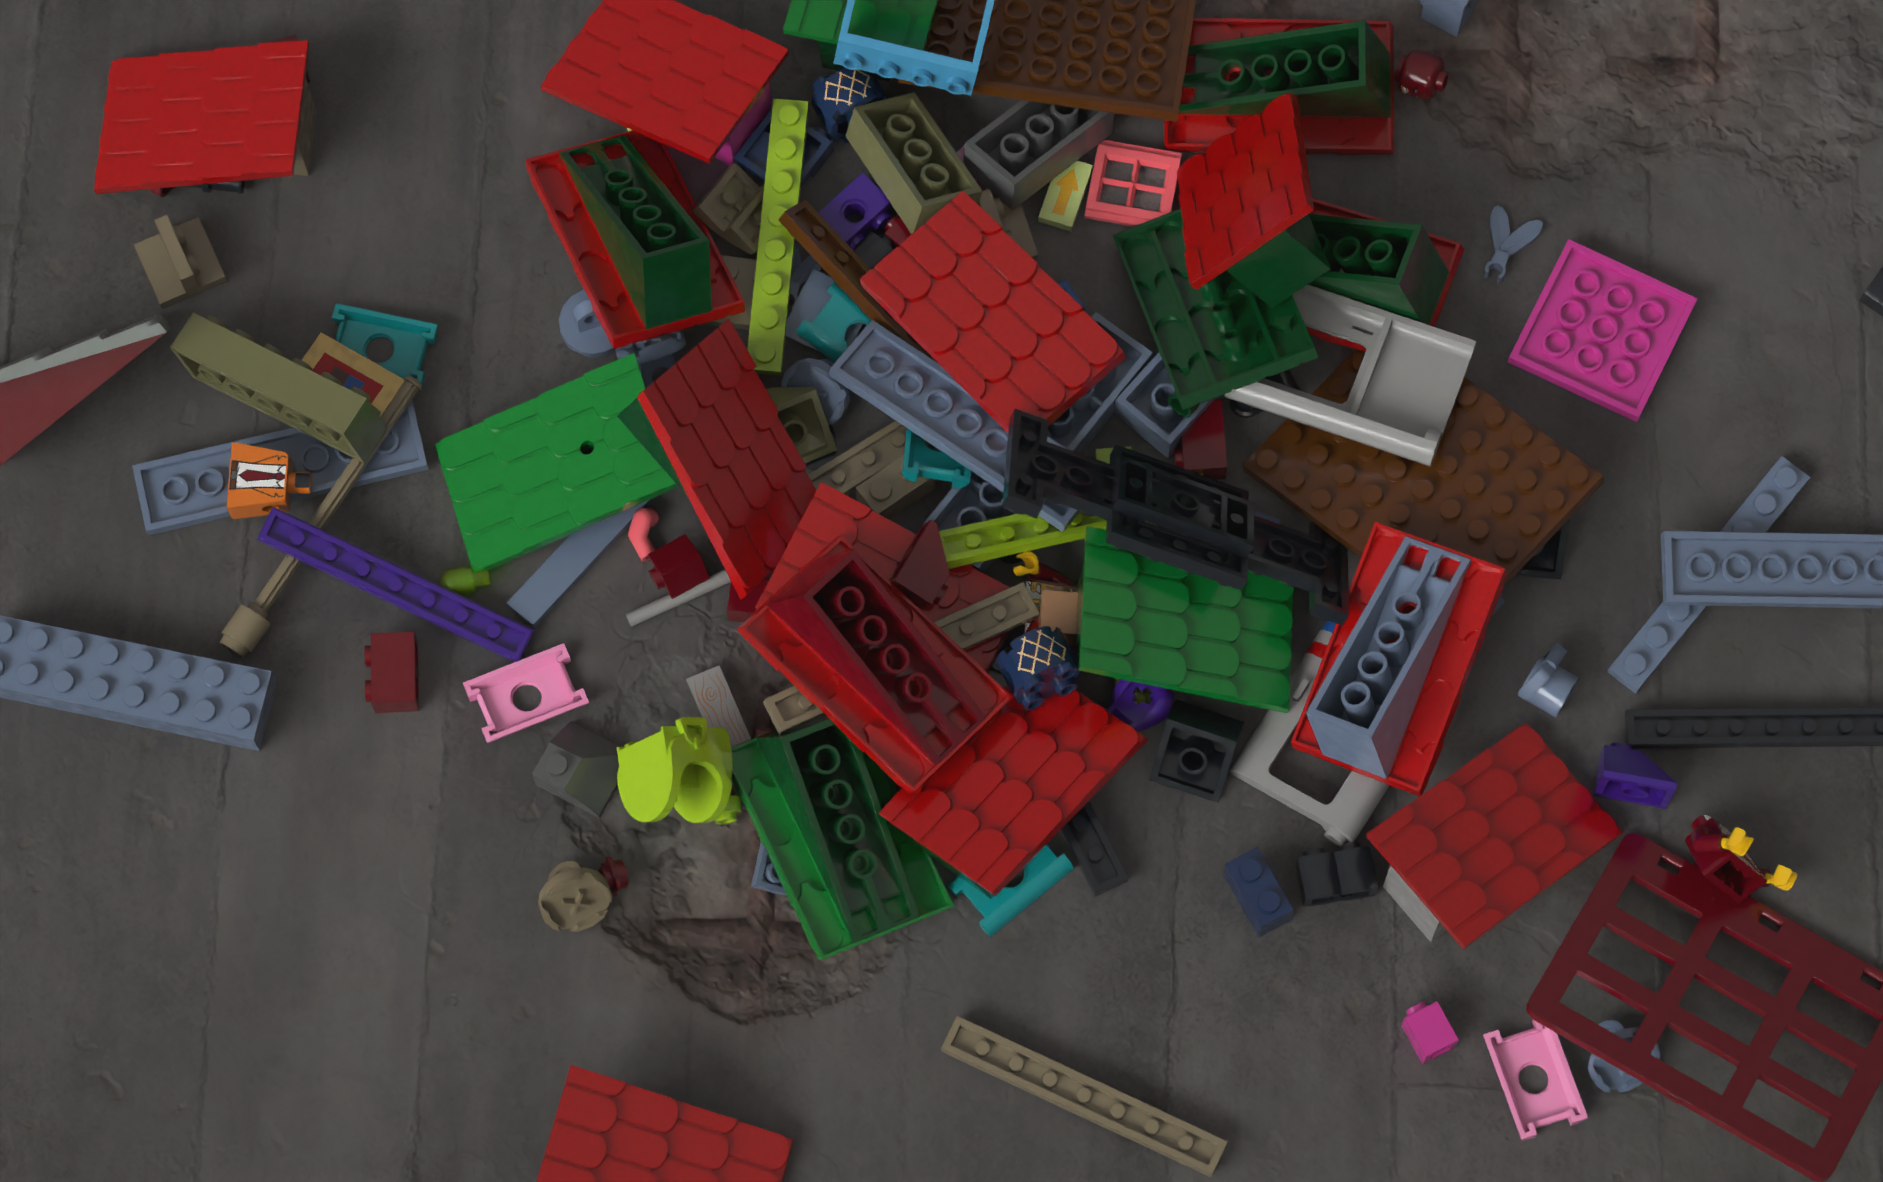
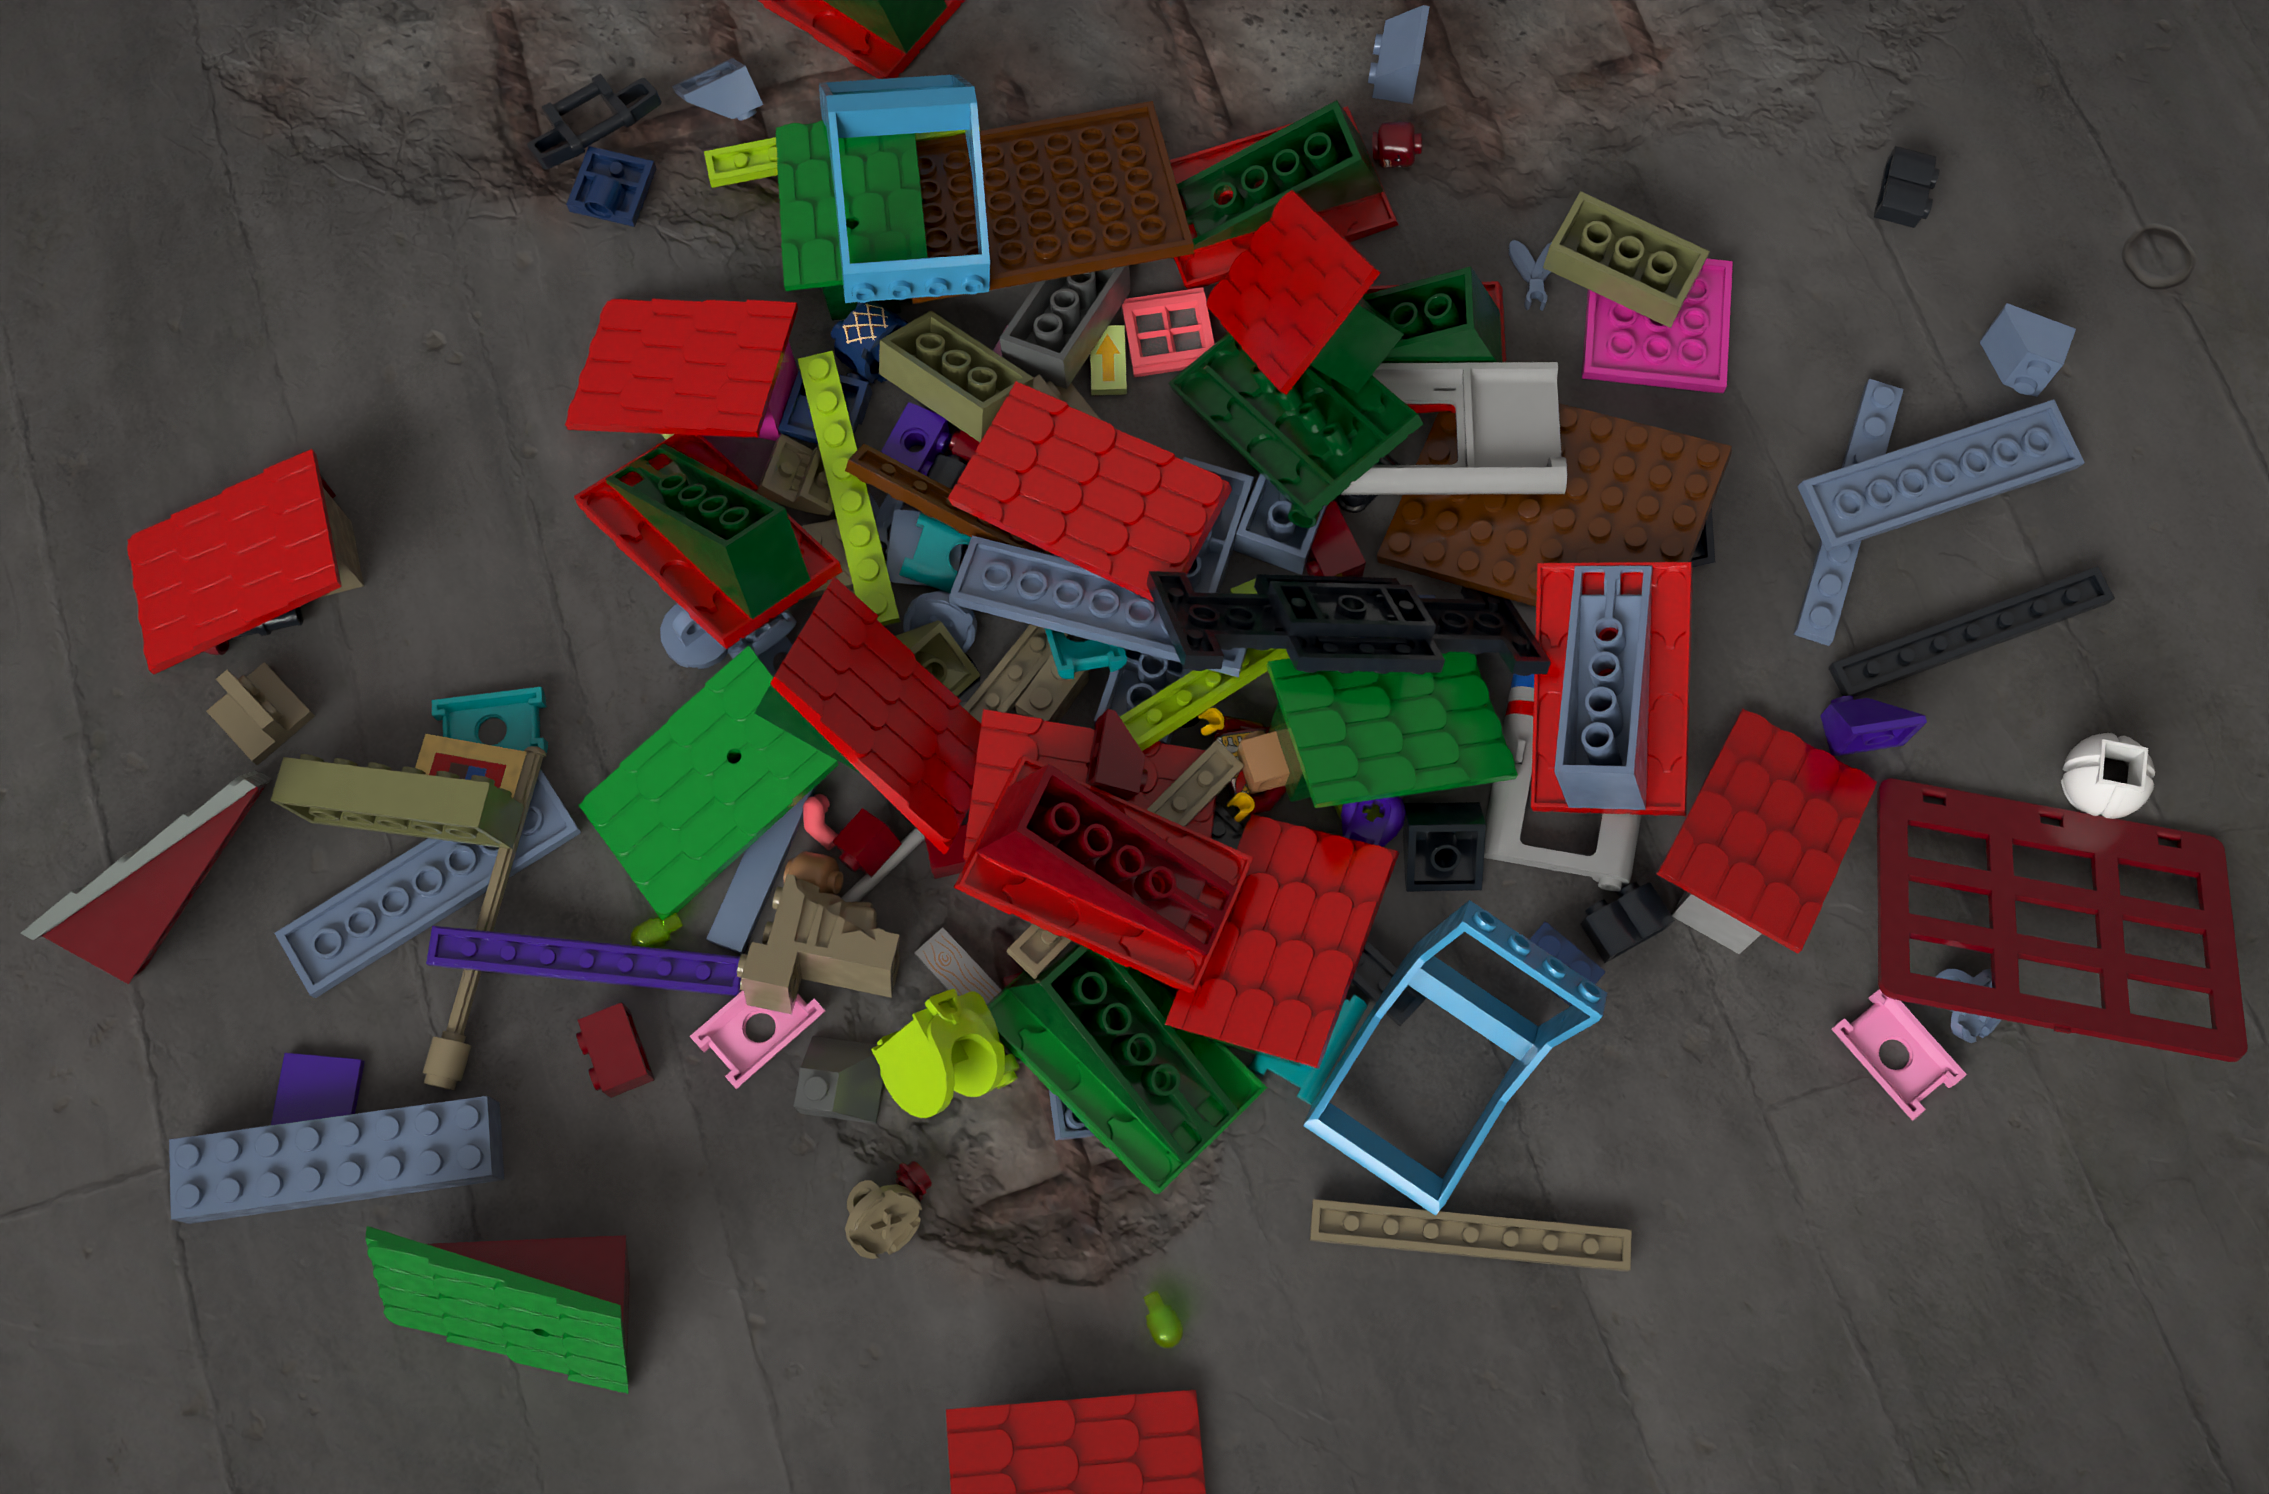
camera: 20 degrees left, 0 degrees up
(125, 613) = (316, 1088): none -> dark purple tile
(245, 854) = (530, 1299): none -> green piece
(262, 480) = (412, 903): orange torso -> none
(605, 639) = (820, 942): none -> dark tan brick
(620, 580) = (816, 869): none -> medium nougat head
(786, 1072) = (1162, 1322): none -> clear neon green cylinder
(1039, 667) = (1268, 818): dark blue brick -> none
(1159, 895) = (1480, 1012): none -> dark azure window
(1429, 1031) = (1779, 1044): dark pink brick -> none
(1548, 683) = (1749, 663): sand blue piece -> none
(1587, 263) = (1625, 259): none -> olive brick
(1726, 862) = (1993, 772): dark red torso -> none
(1827, 919) = (2094, 795): none -> white piece

